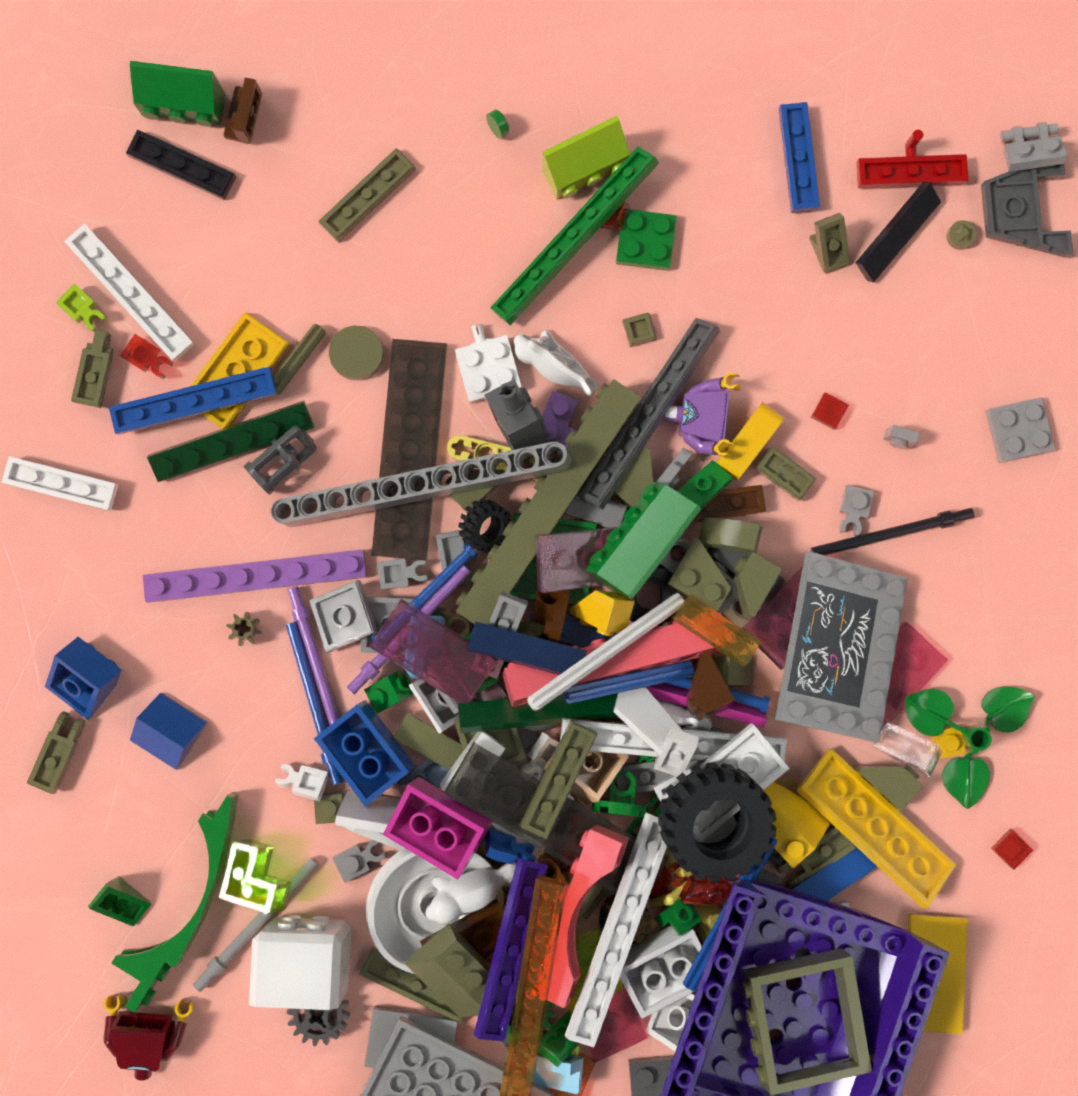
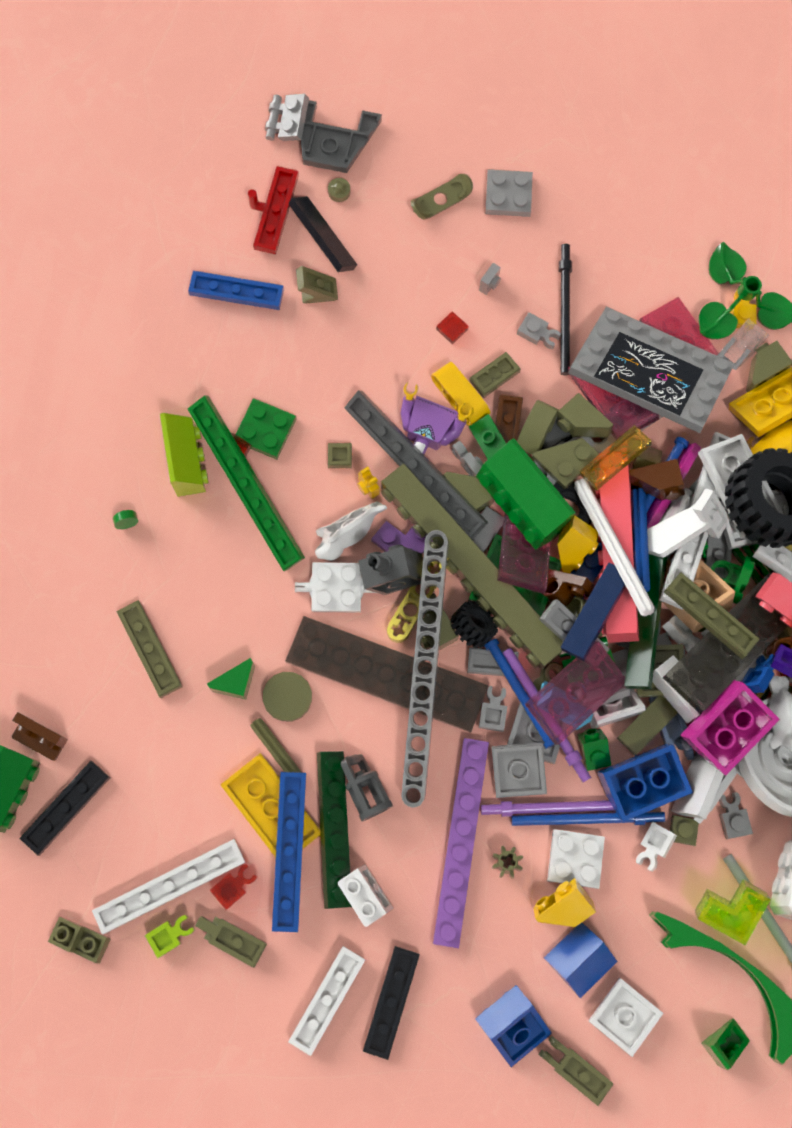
camera: 75 degrees left, 10 degrees down
(56, 221) = (79, 940): none -> olive slope
(76, 549) = (391, 1003): none -> black tile
(121, 791) = (625, 1017): none -> white plate
(171, 492) = (365, 895): none -> white bracket
(214, 701) = (566, 906): none -> yellow slope
(269, 700) = (576, 857): none -> white plate
(354, 294) = (235, 681): none -> green slope
(612, 368) = (368, 483): none -> yellow plate
(1002, 367) = (454, 190): none -> olive piece

